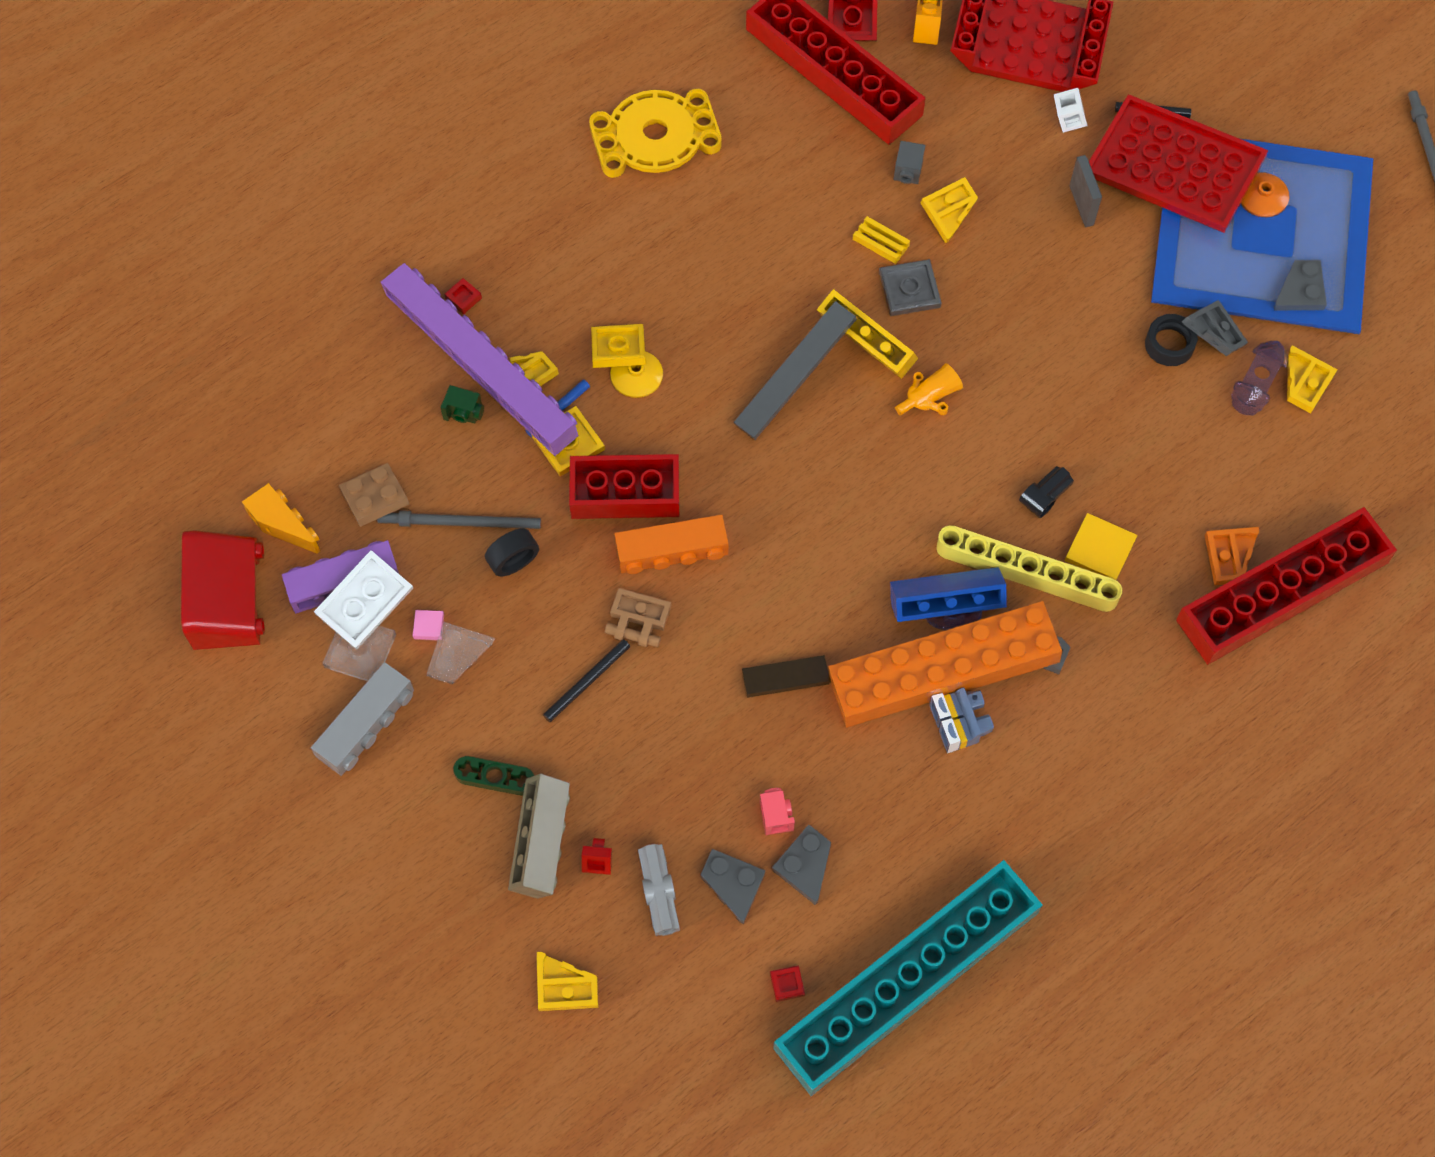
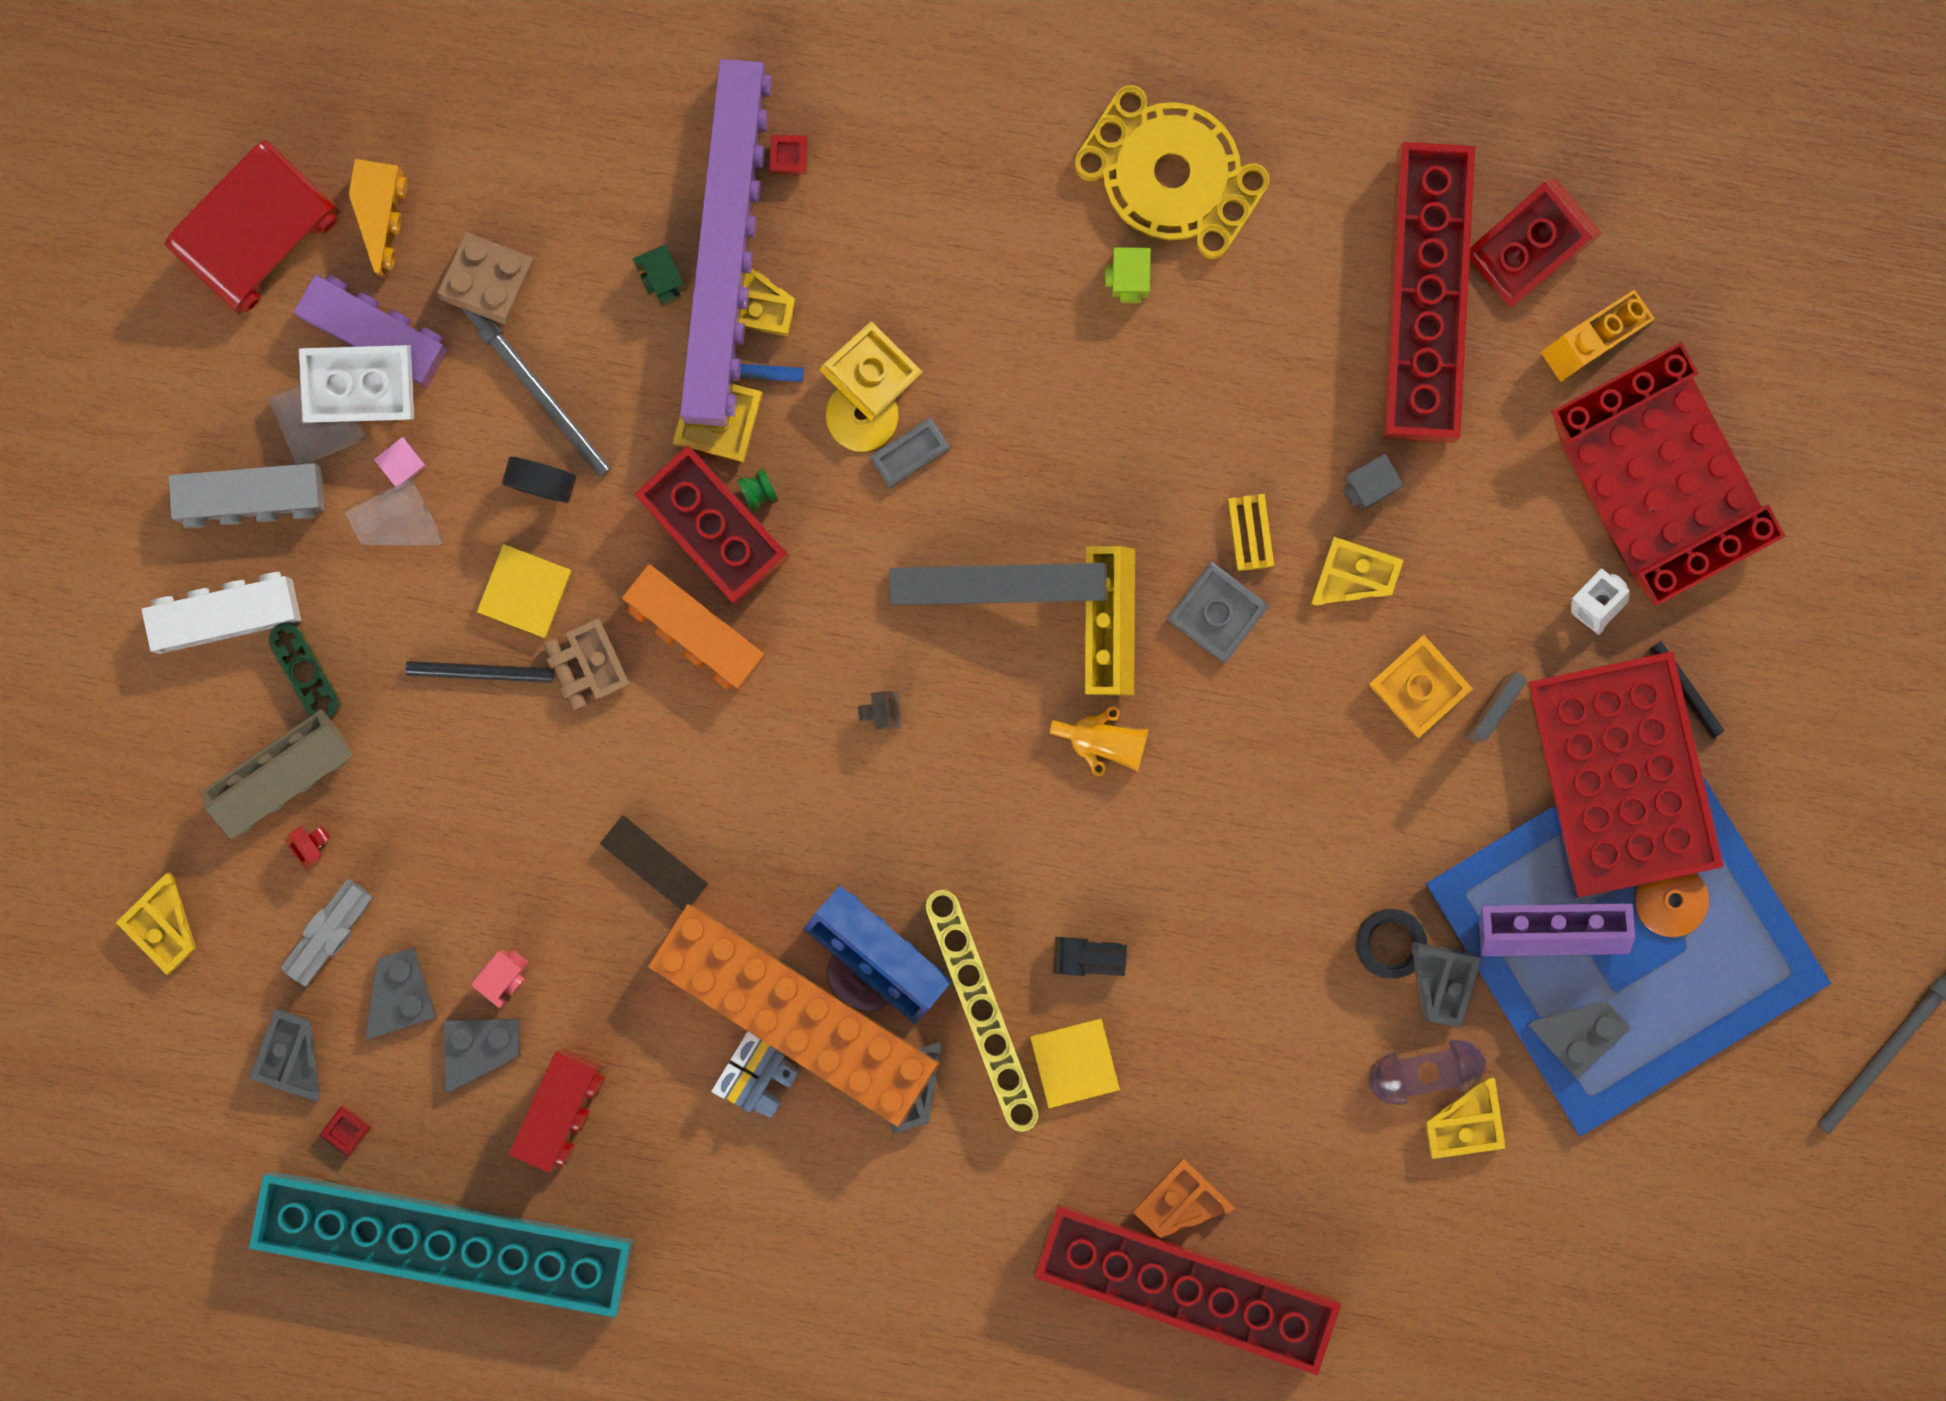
camera: 50 degrees right, 20 degrees up
(416, 791) = (220, 614): none -> white brick
(565, 618) = (524, 591): none -> yellow tile
(628, 446) = (757, 490): none -> green wheel
(680, 365) = (910, 452): none -> flat silver tile
(689, 187) = (1129, 274): none -> lime brick
(711, 977) = (288, 1056): none -> dark grey wing
(809, 486) = (883, 710): none -> clear smoke tile
(886, 838) = (558, 1111): none -> red brick
(1040, 223) = (1420, 686): none -> light orange plate
(1234, 249) = (1556, 929): none -> medium lavender brick

